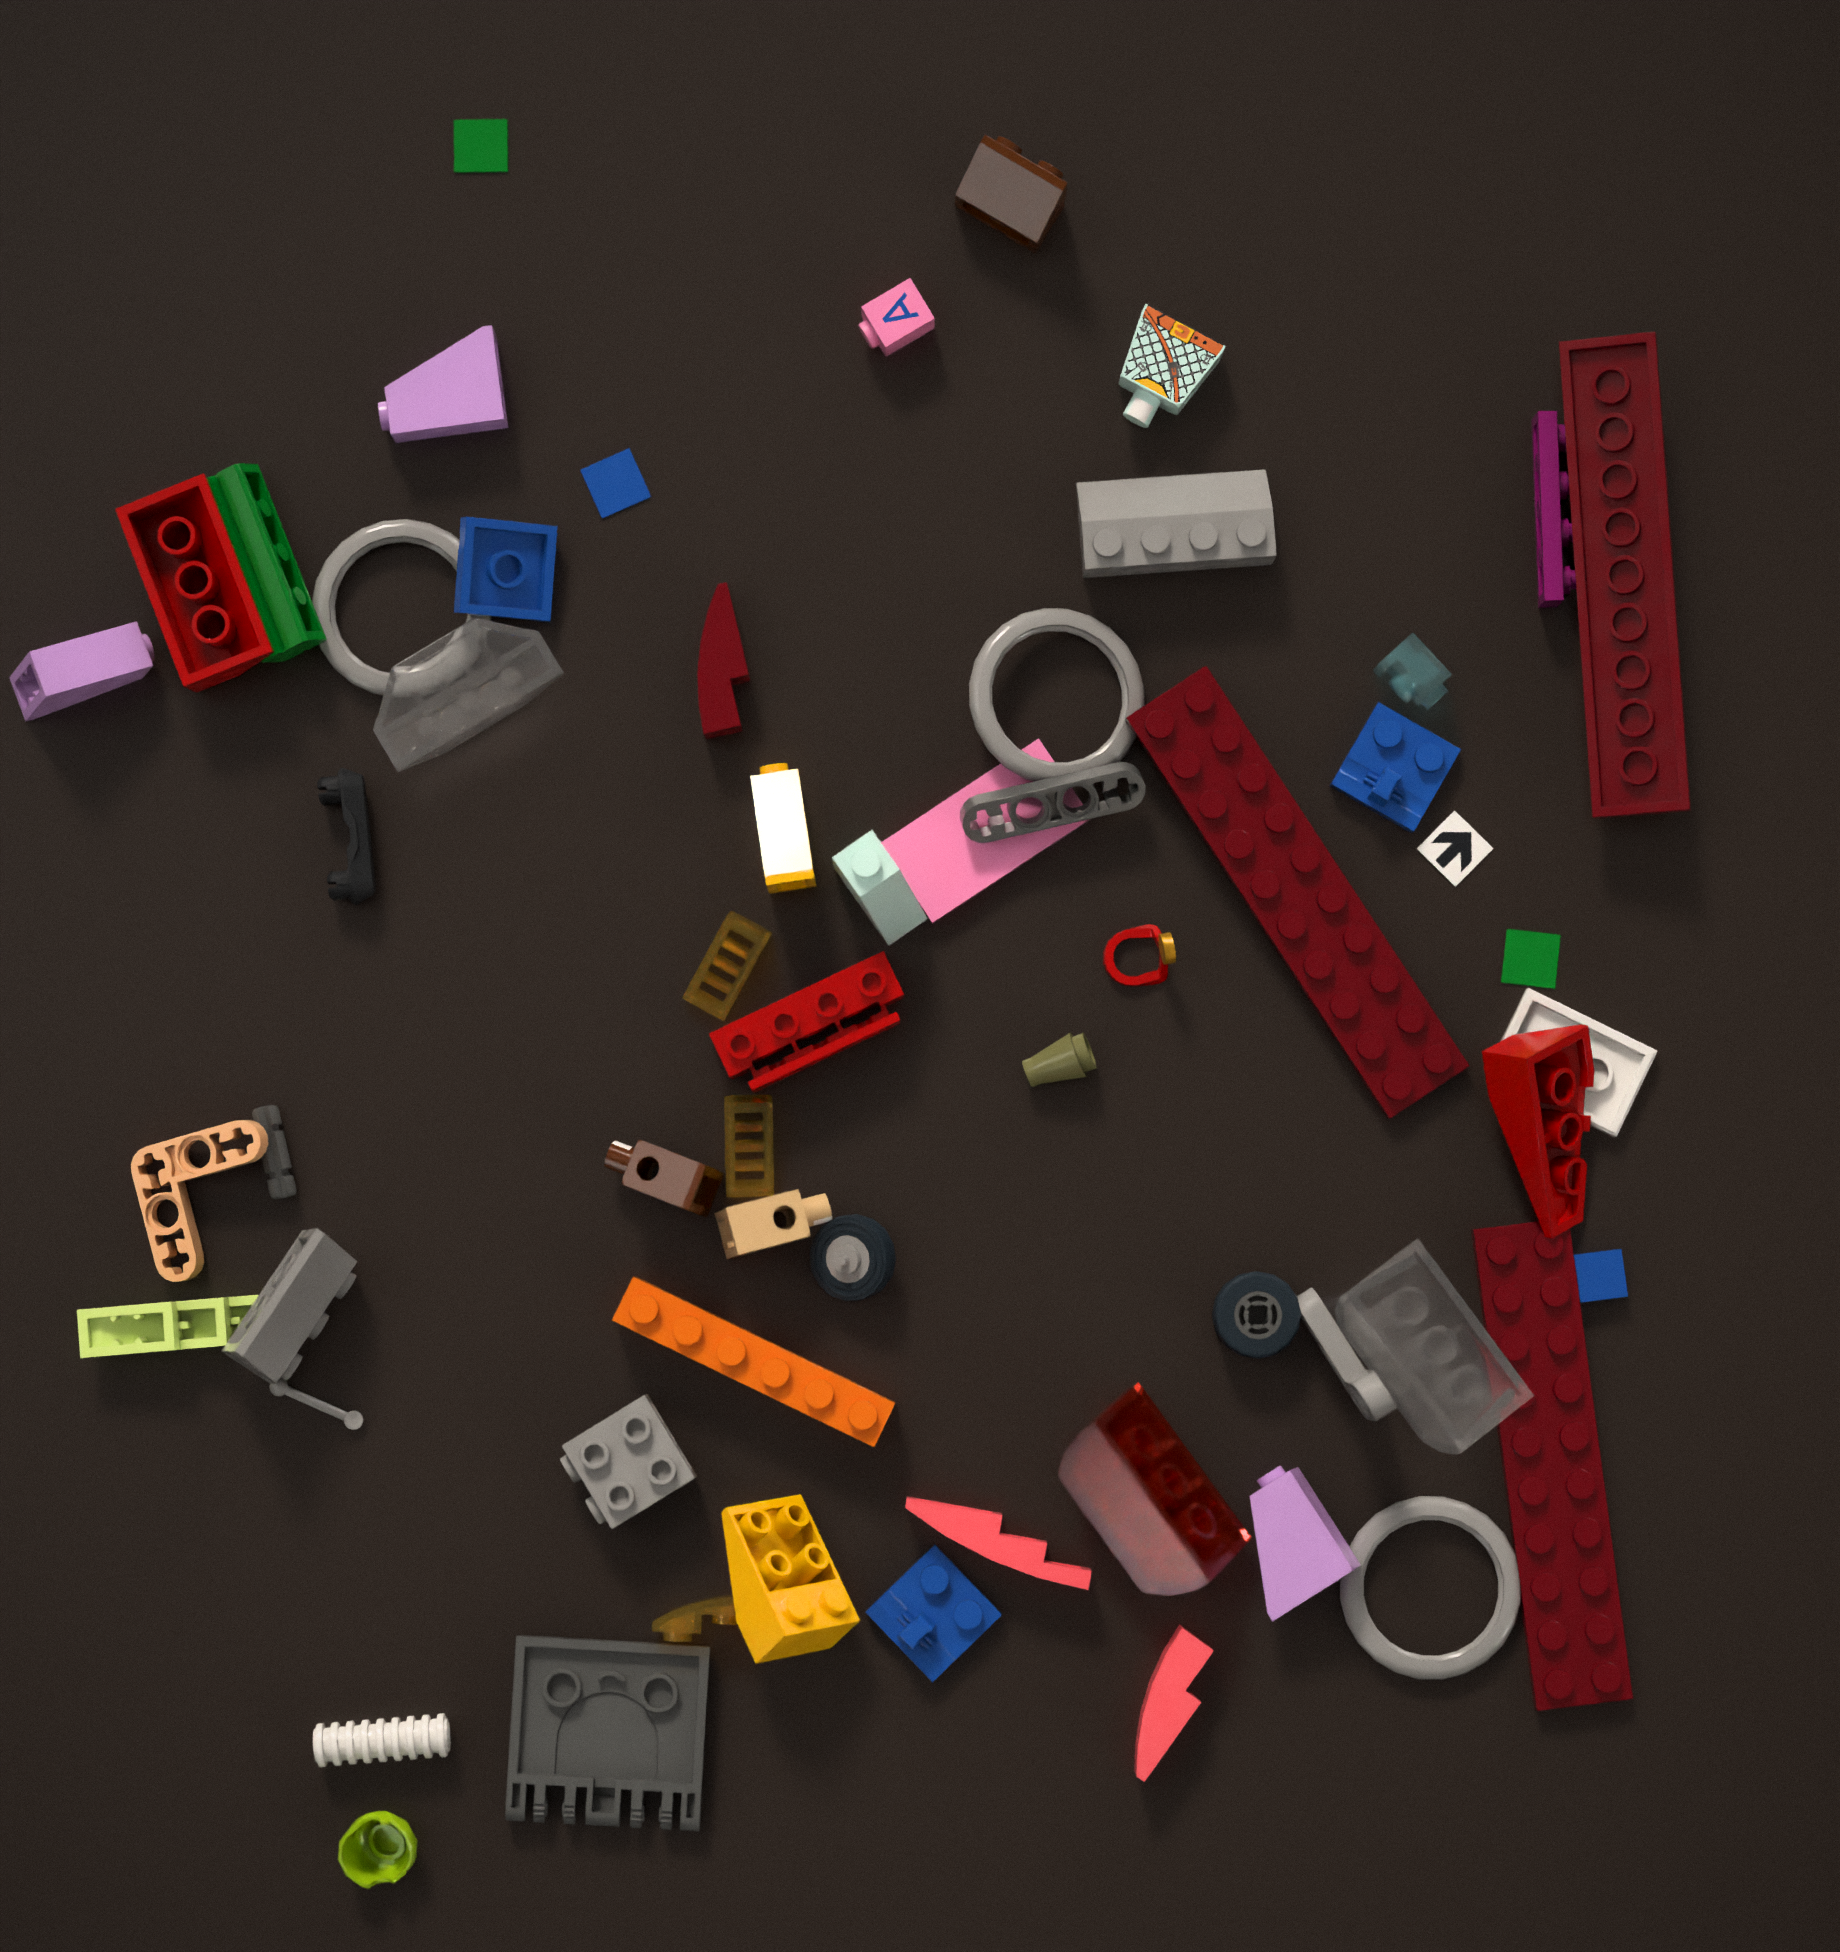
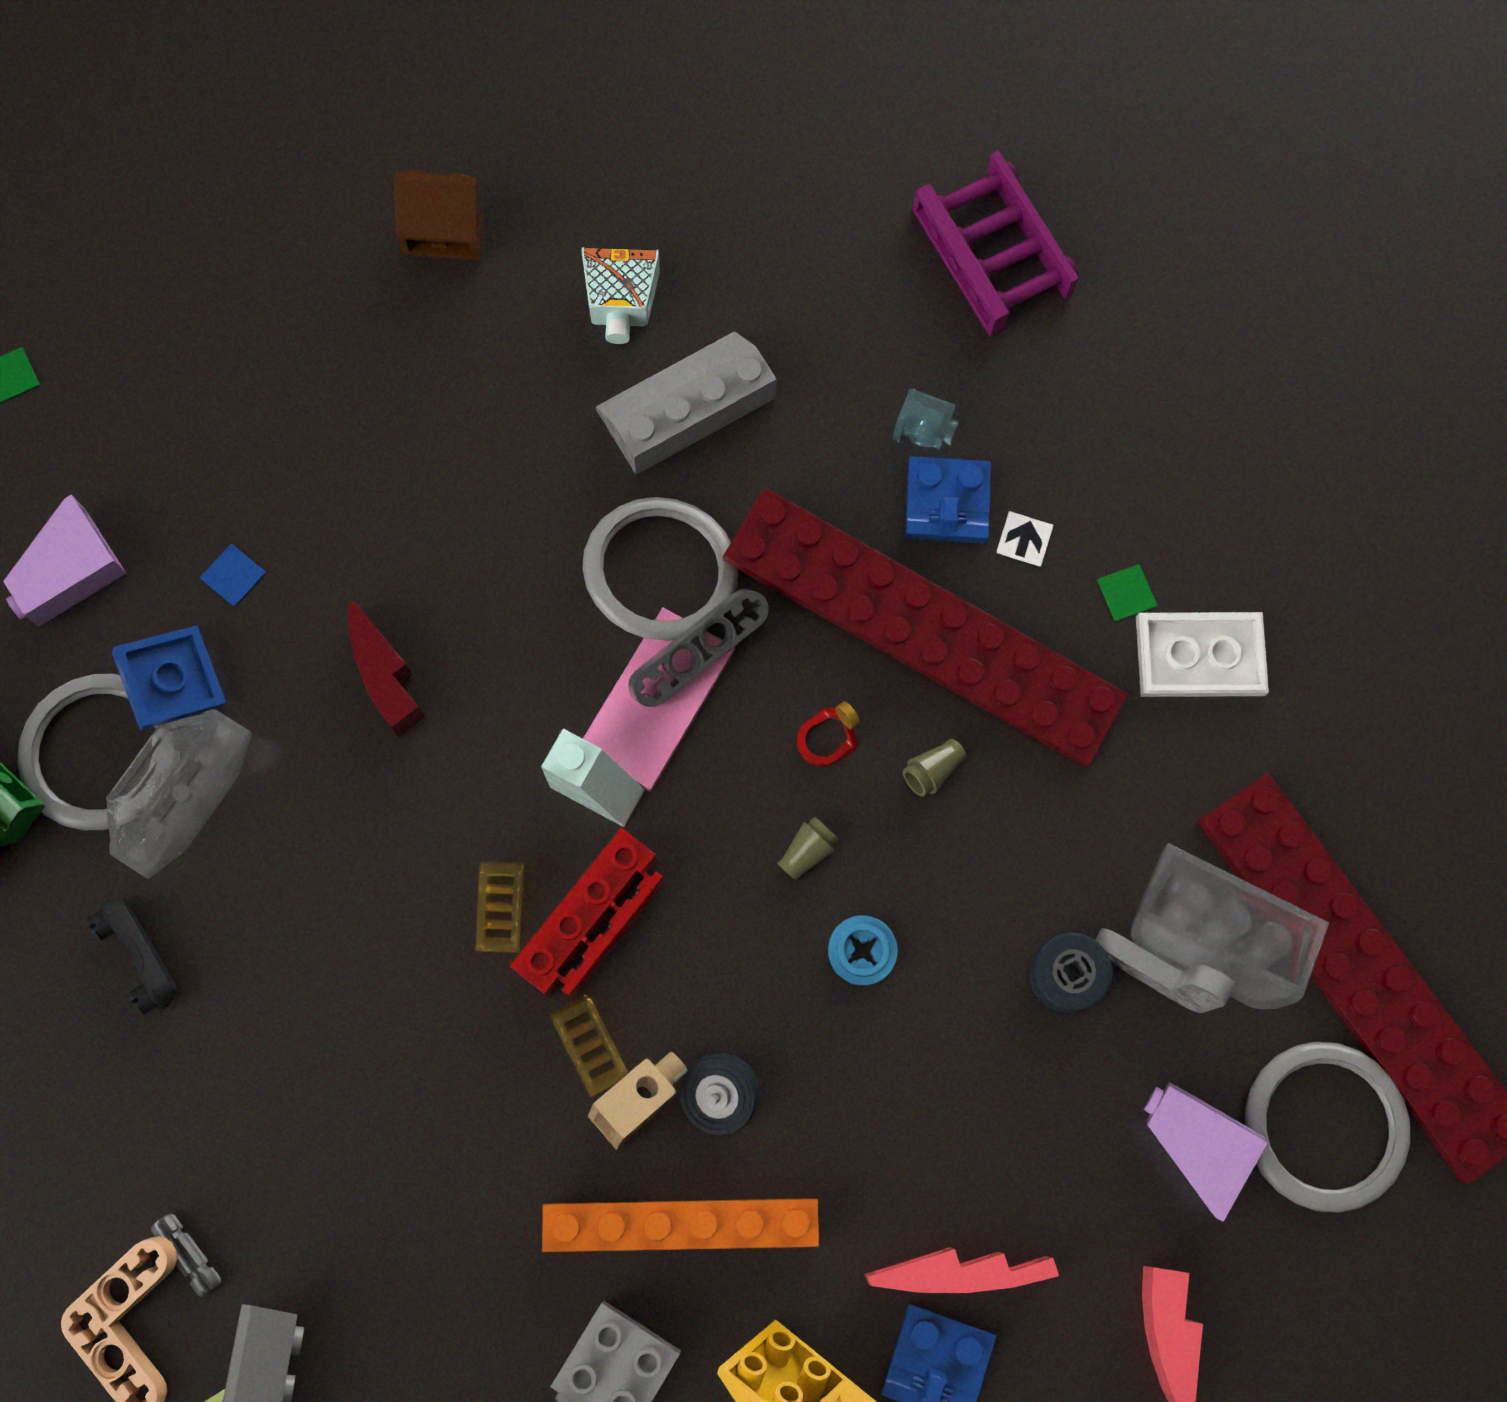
camera: 30 degrees left, 10 degrees down
(677, 1182) = (543, 1100): reddish brown torso -> none
(782, 829) = (493, 774): slope -> none
(896, 318) = (395, 348): bright pink brick -> none
(1075, 1169) = (883, 951): none -> dark azure gear
(1150, 1498) = (1070, 1171): clear red windscreen -> none
(1228, 1042) = (931, 769): none -> olive cone
(1539, 1101) = (1195, 689): red wedge -> none
(1600, 1275) = (1318, 805): blue tile -> none
(1624, 576) = (1048, 275): dark red plate -> none

